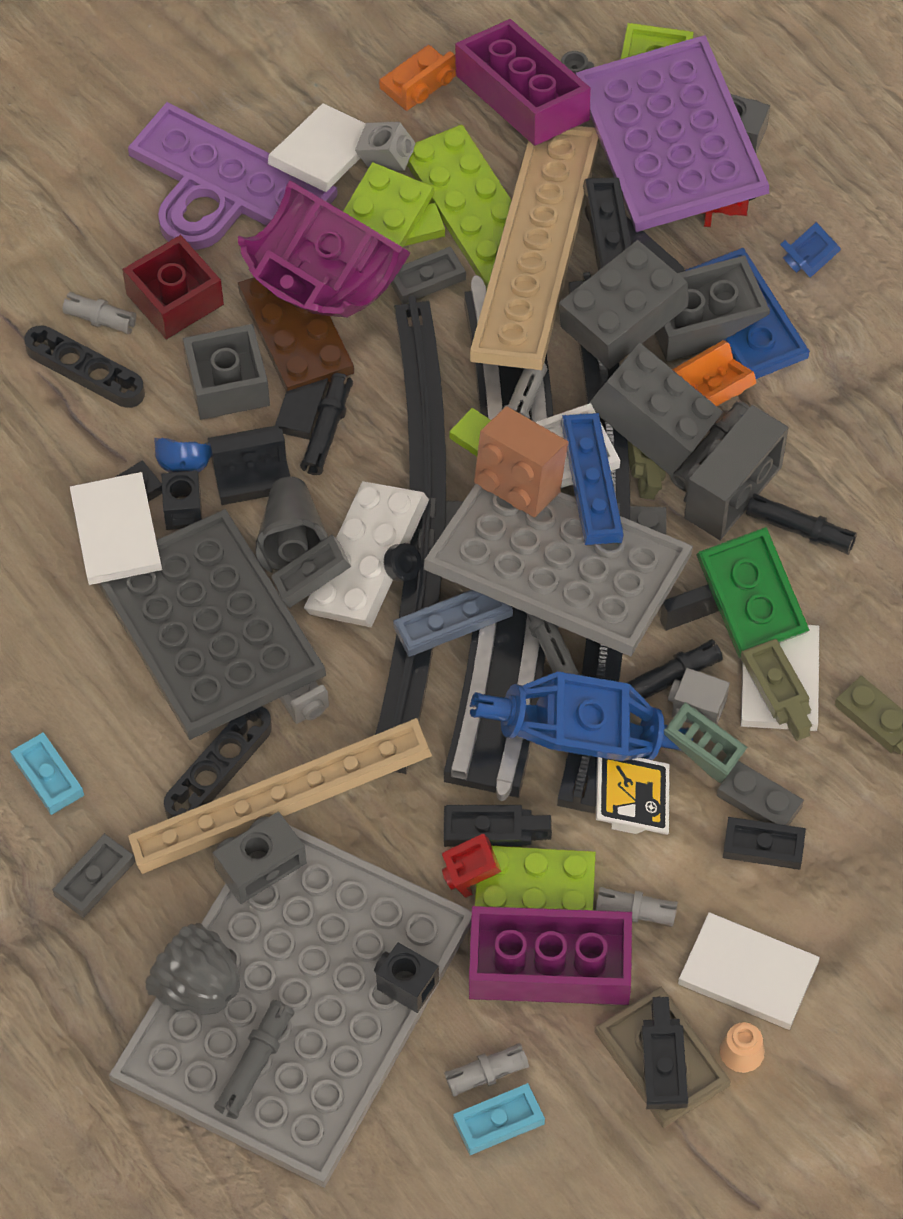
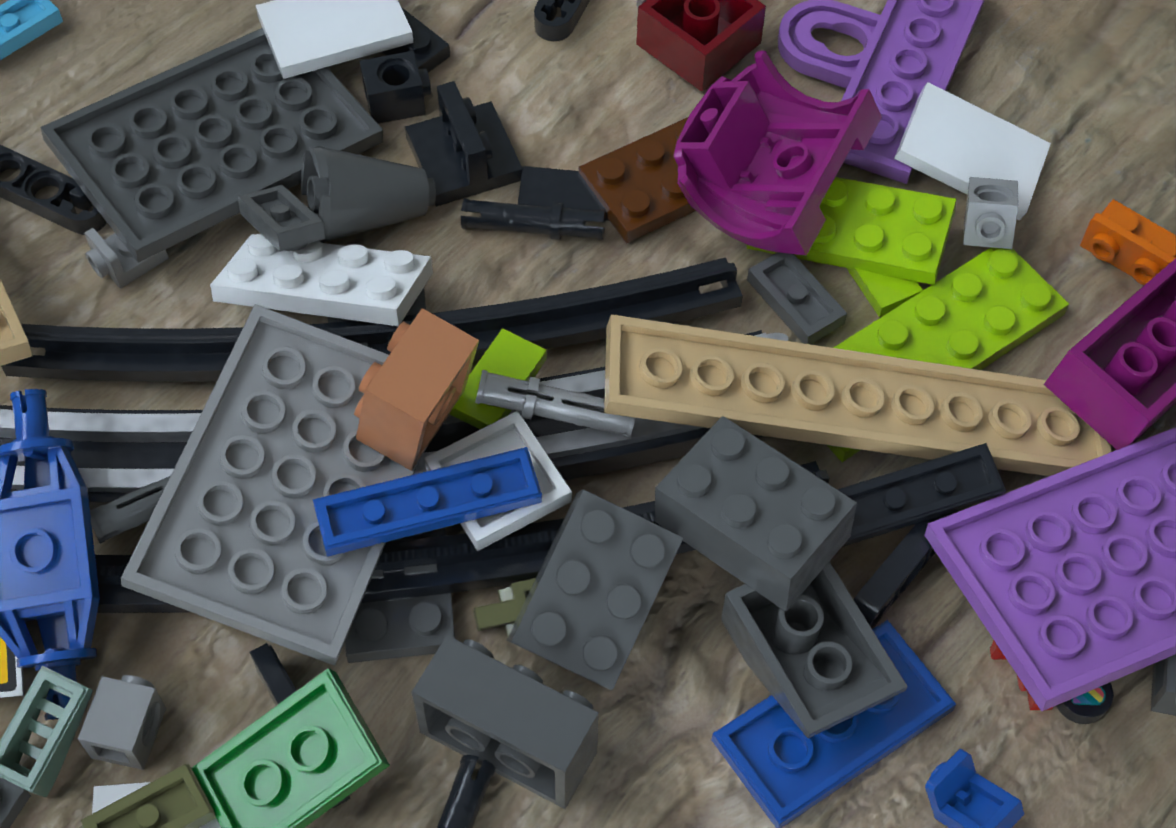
camera: 80 degrees right, 0 degrees up
(181, 455) = (455, 61): blue helmet -> none
(226, 371) = (582, 95): dark grey brick -> none
(402, 562) = (295, 301): black tile -> none
(448, 620) = (191, 353): sand blue tile -> none
(665, 675) = (180, 692): black pin -> none
(699, 454) = (614, 715): dark grey pin -> none
(717, 374) = (689, 678): orange bracket -> none

